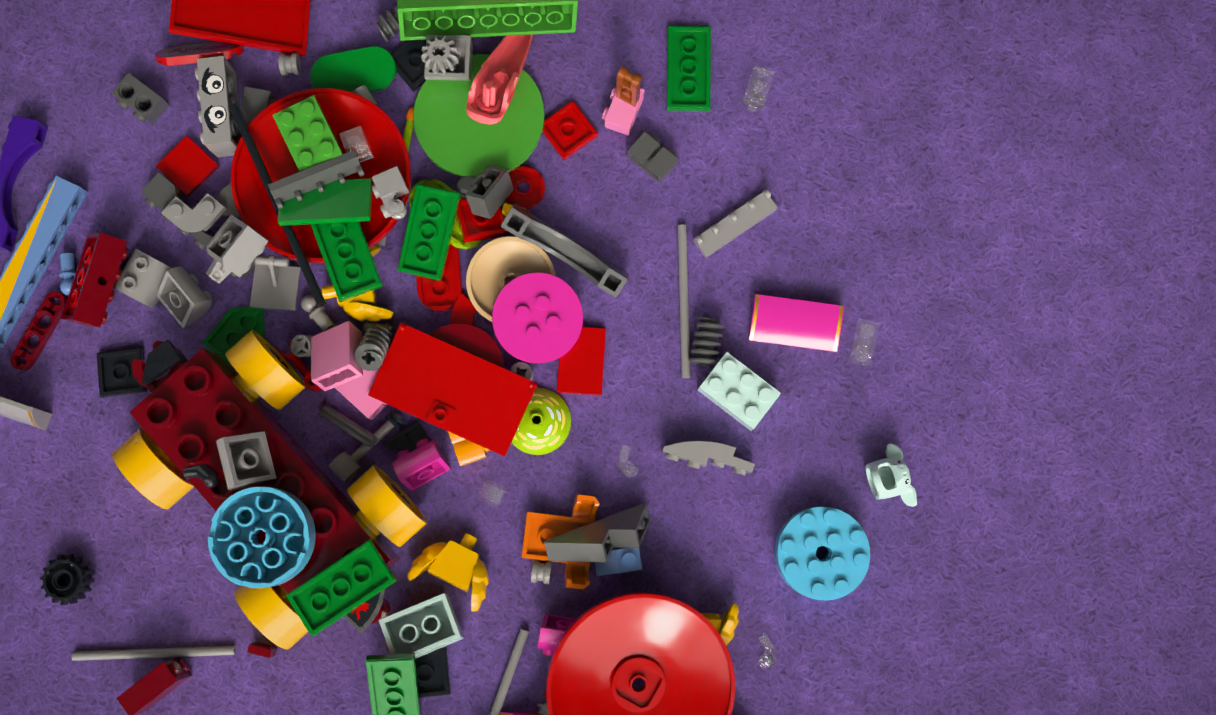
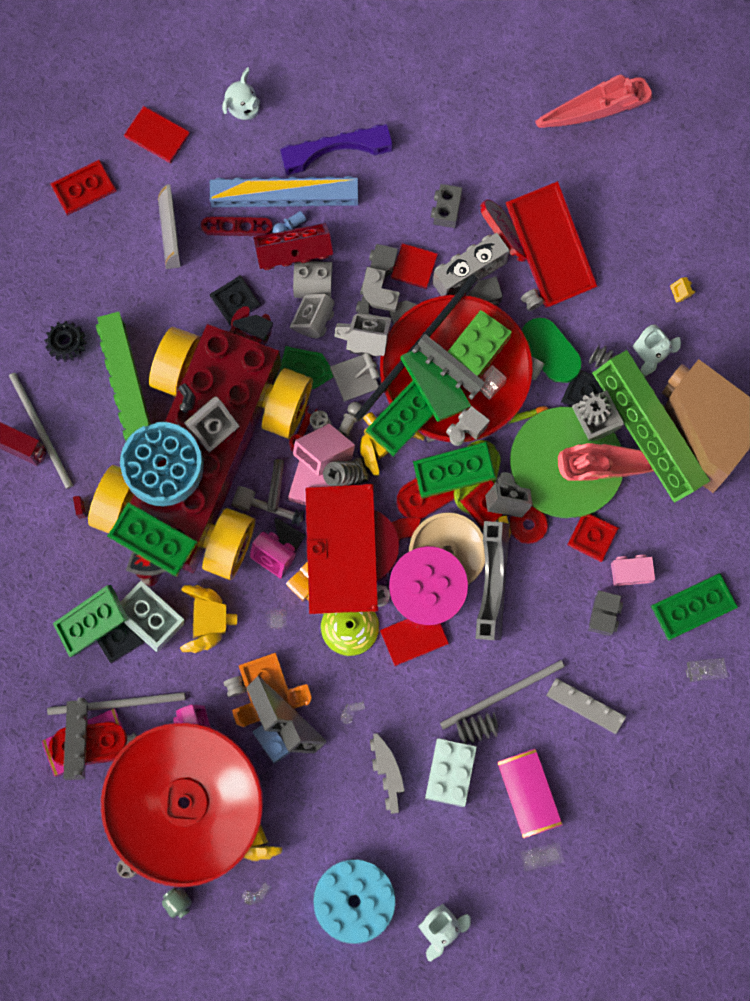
camera: 65 degrees right, 5 degrees down
(135, 532) = (123, 373): none -> bright green brick
(628, 86) = (646, 564): dark orange plate -> none

